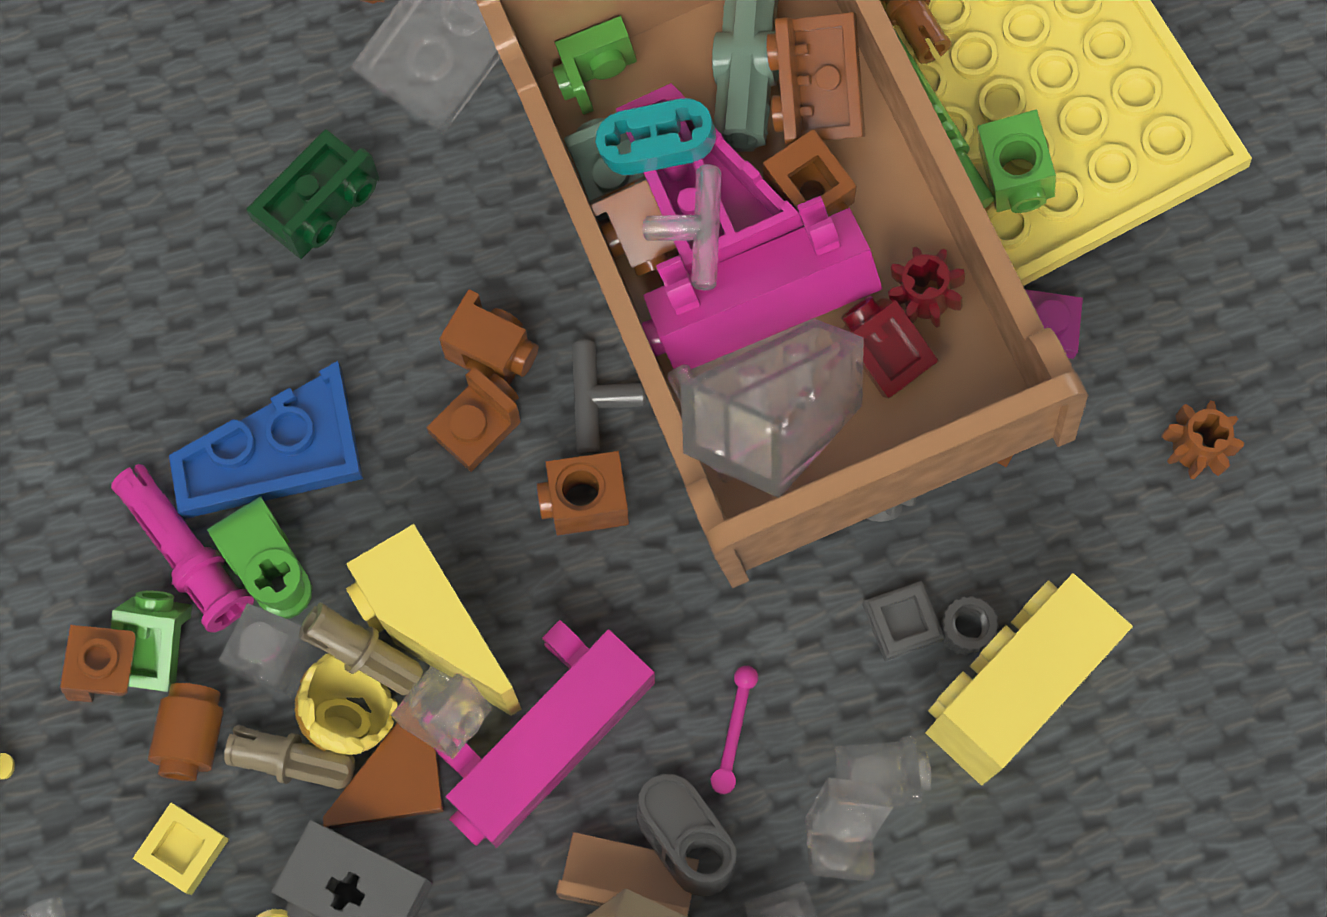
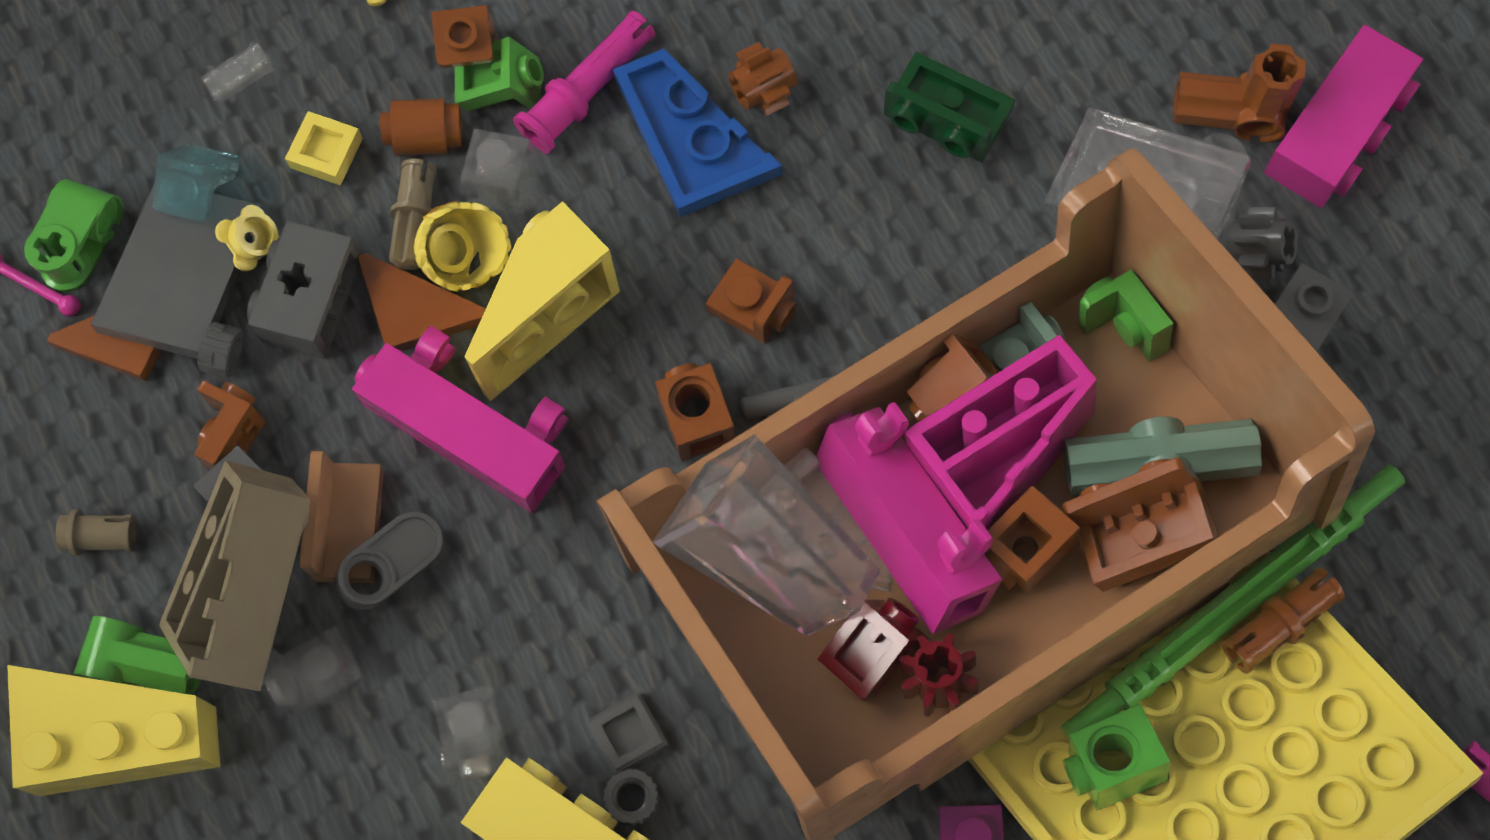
camera: 85 degrees right, 0 degrees up
(233, 362) = (762, 78): none -> dark orange gear
(258, 554) = (589, 142): bright green piece -> none
(360, 649) = (507, 226): dark tan axle -> none
(443, 711) = (453, 321): clear bracket -> none
(487, 340) = (830, 291): dark orange brick -> none
(656, 136) = (1041, 368): teal beam -> none
(700, 227) = (941, 433): clear piece -> none
(723, 779) = (450, 591): dark pink hinge -> none
(843, 828) = (407, 704): clear bracket -> none

